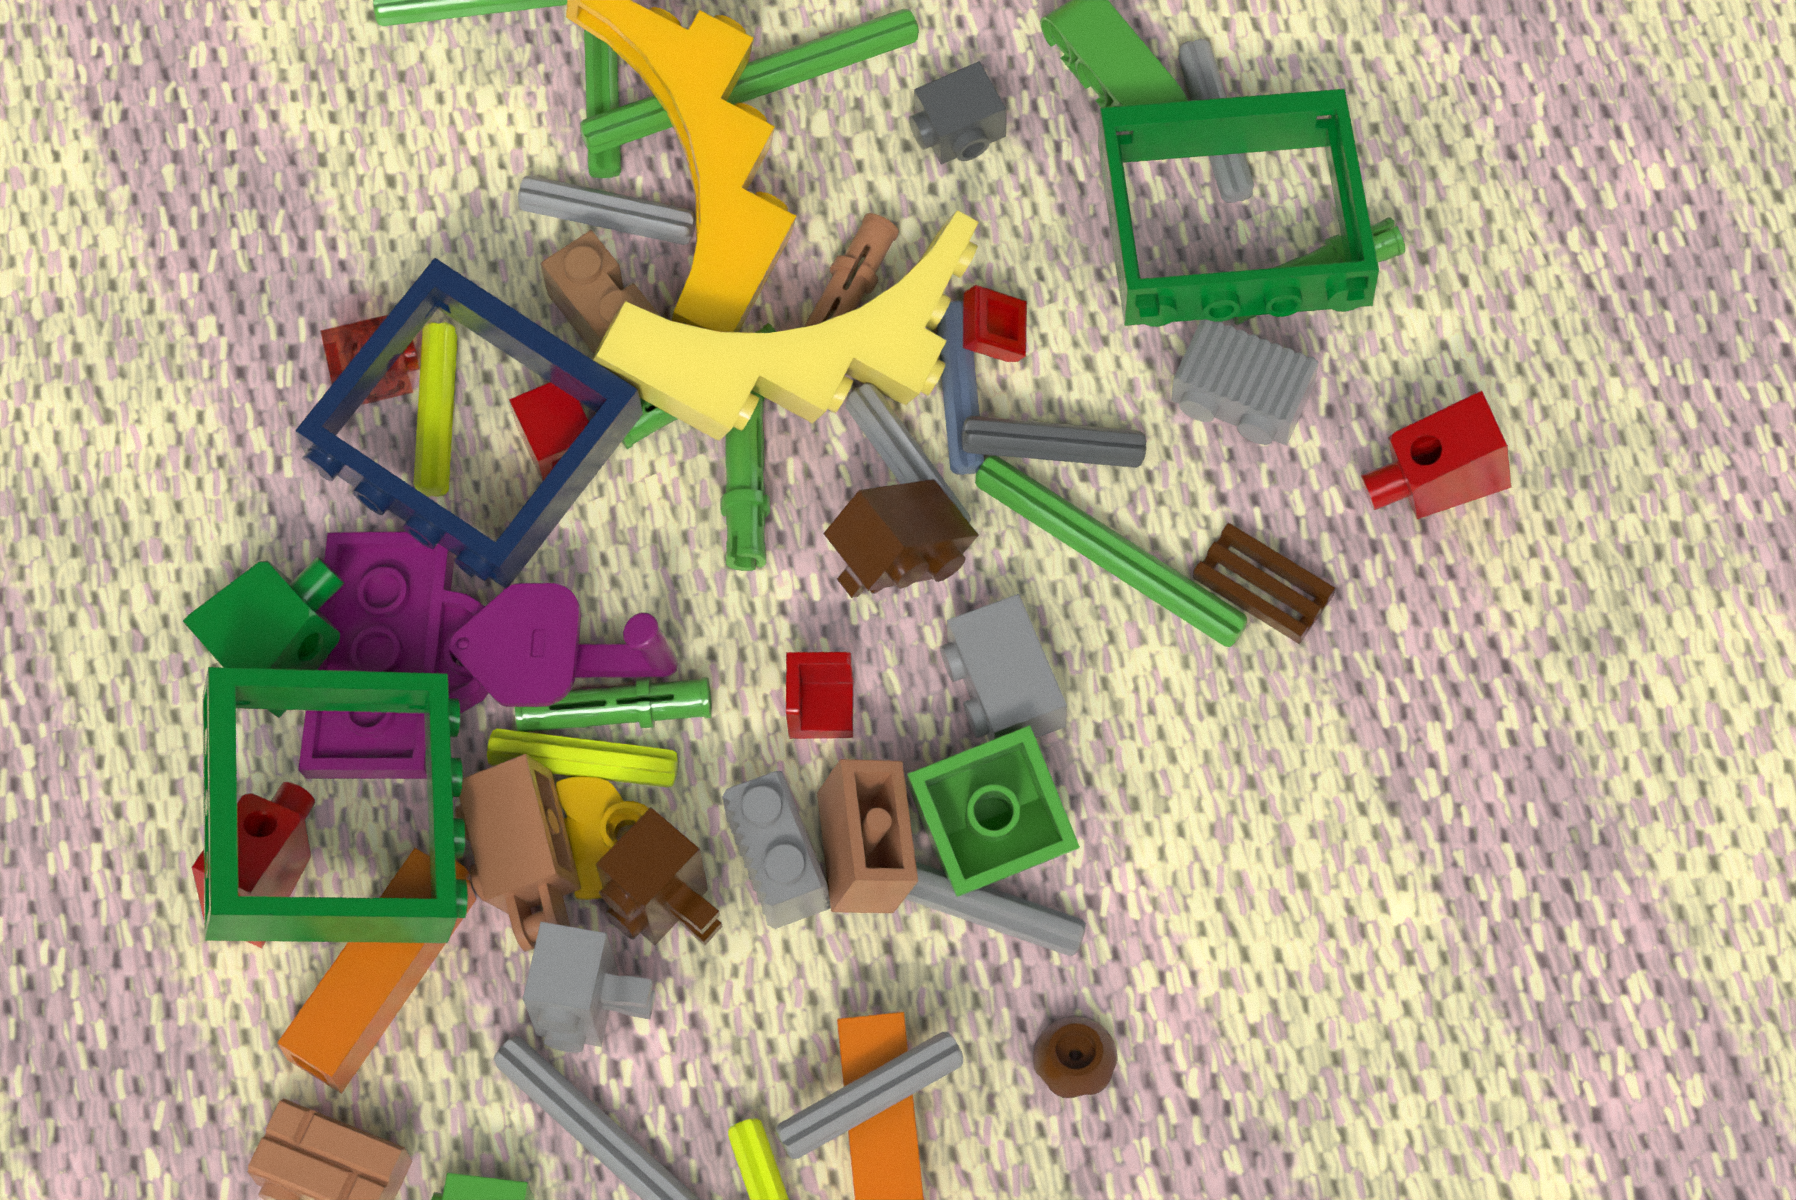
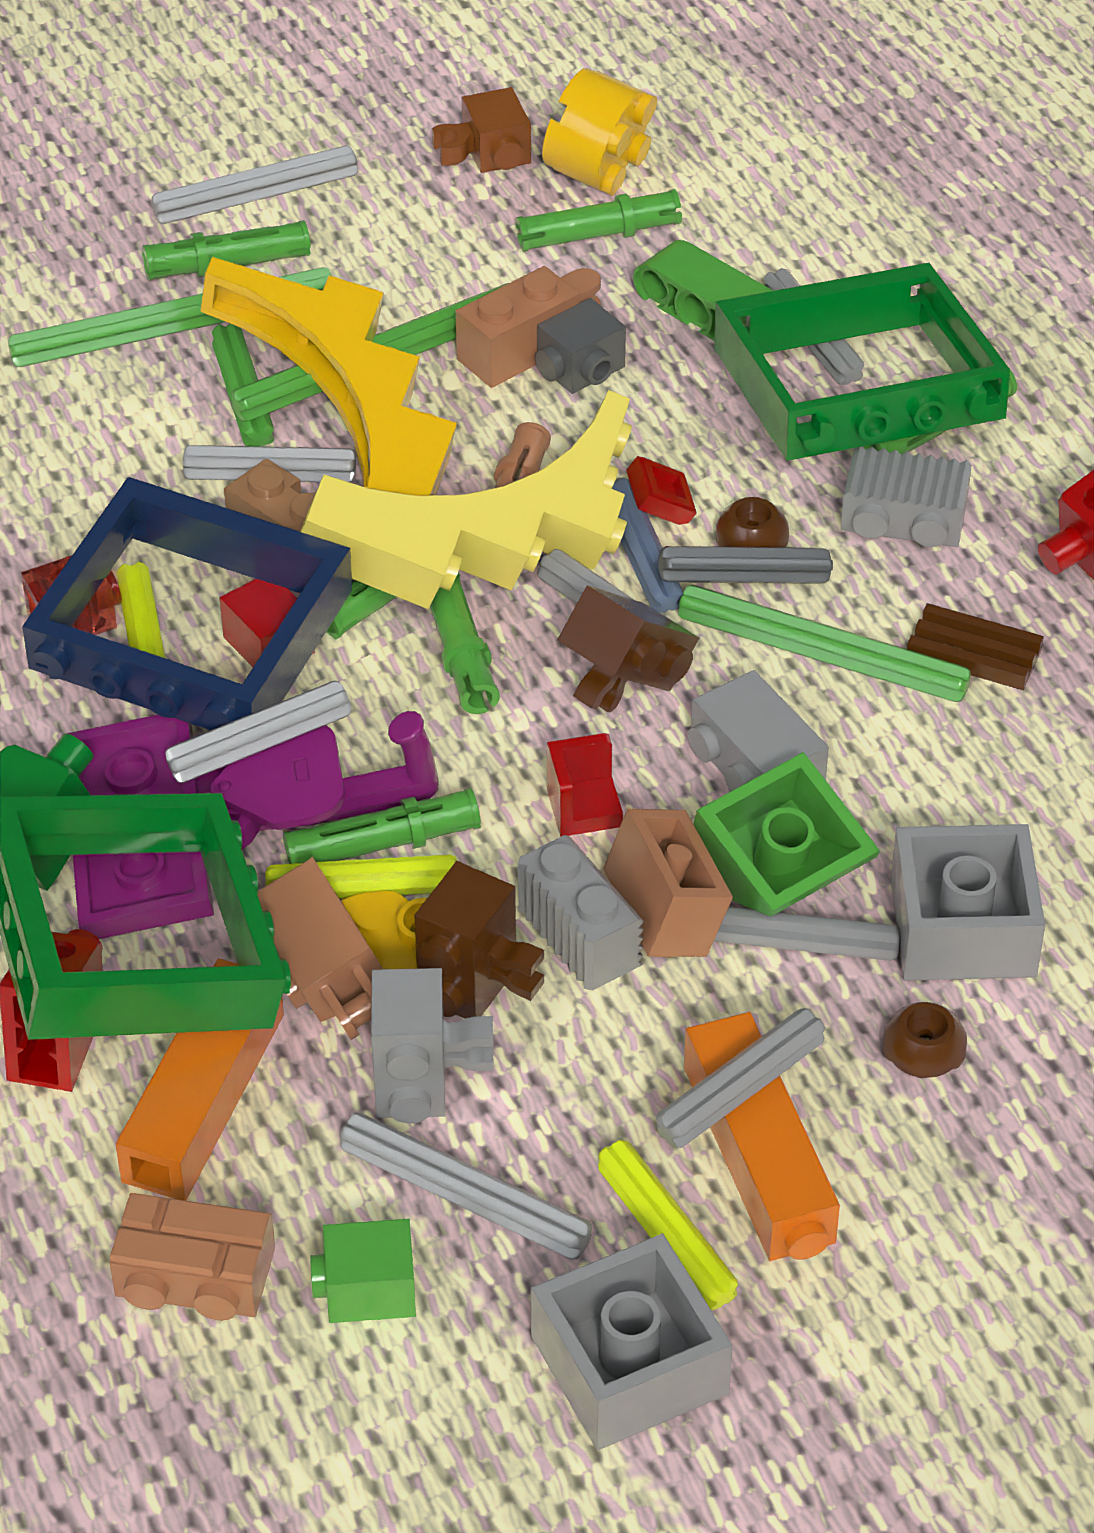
camera: 15 degrees left, 20 degrees down
(504, 593) = (258, 731): none -> light grey axle
(879, 79) = (500, 329): none -> nougat brick
(1072, 405) = (752, 524): none -> reddish brown plate
(1152, 917) = (967, 902): none -> light grey brick

